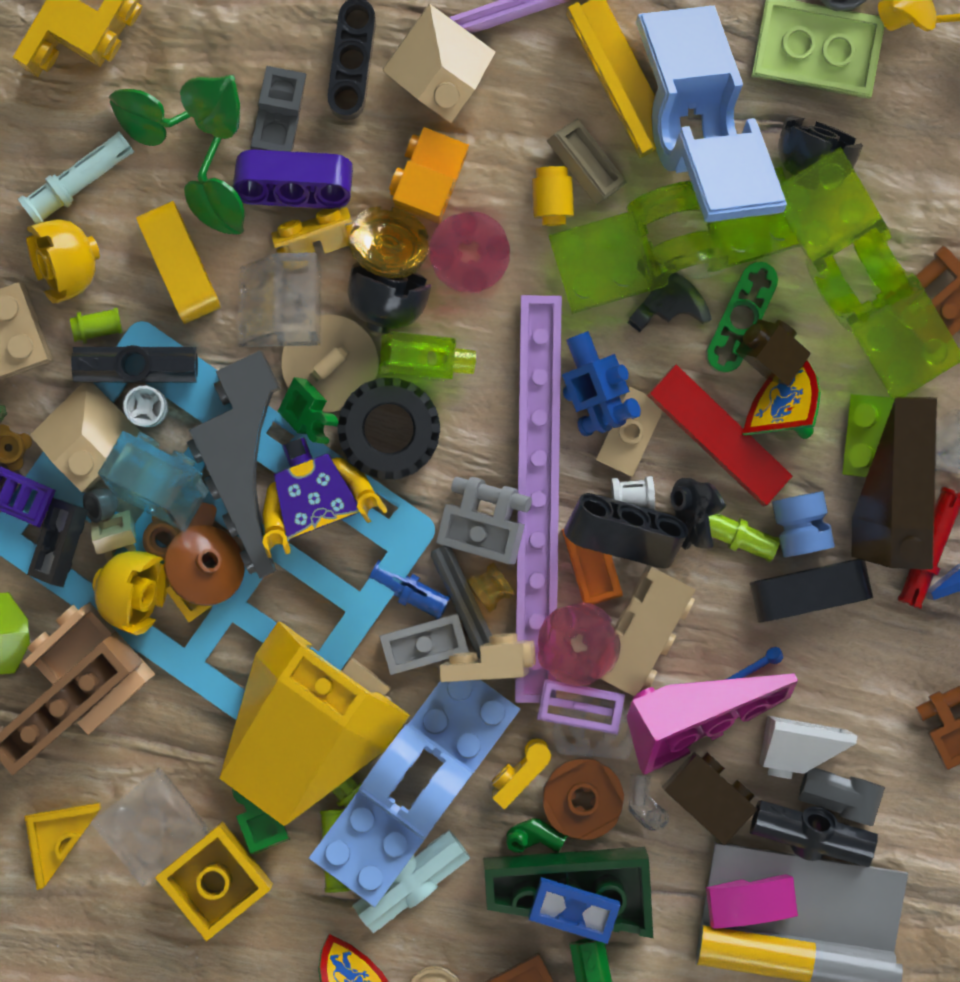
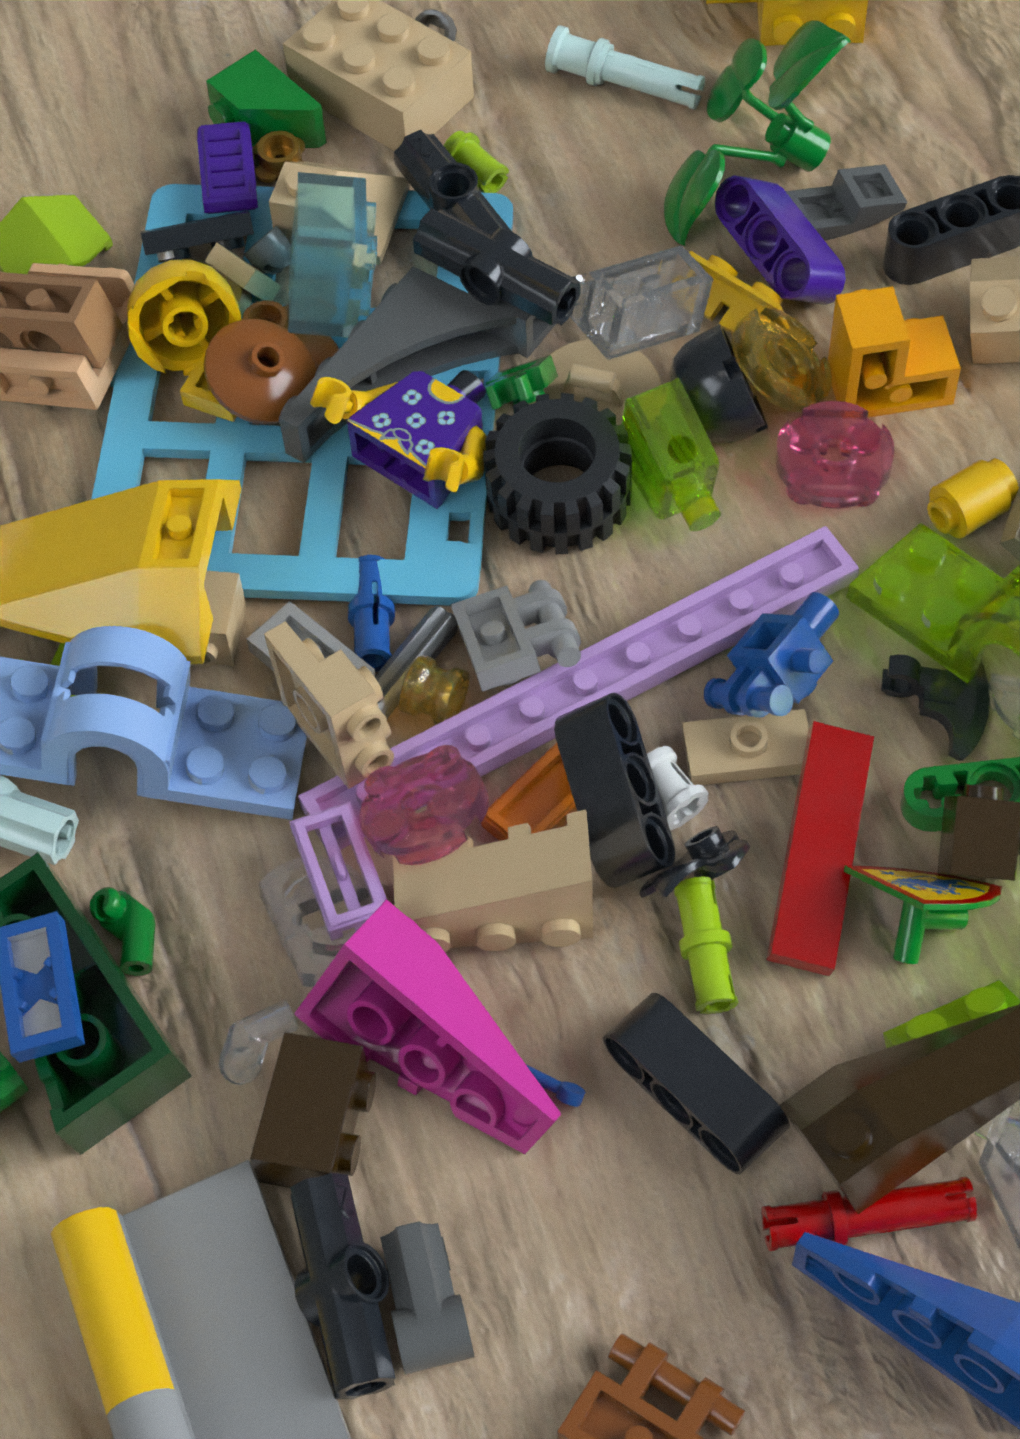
camera: 60 degrees right, 30 degrees down
(62, 257) = (527, 88): yellow cylinder -> none
(140, 405) = (401, 225): white wheel -> none
(178, 262) = (601, 195): yellow beam -> none
(235, 386) = (496, 267): none -> black piece
(513, 781) = (184, 845): yellow plate -> none
(577, 821) = (227, 989): dark orange plate -> none
(751, 902) = (188, 1255): dark pink slope -> none
(800, 745) = (461, 1183): white slope -> none
(803, 524) = (788, 1004): medium blue wheel -> none

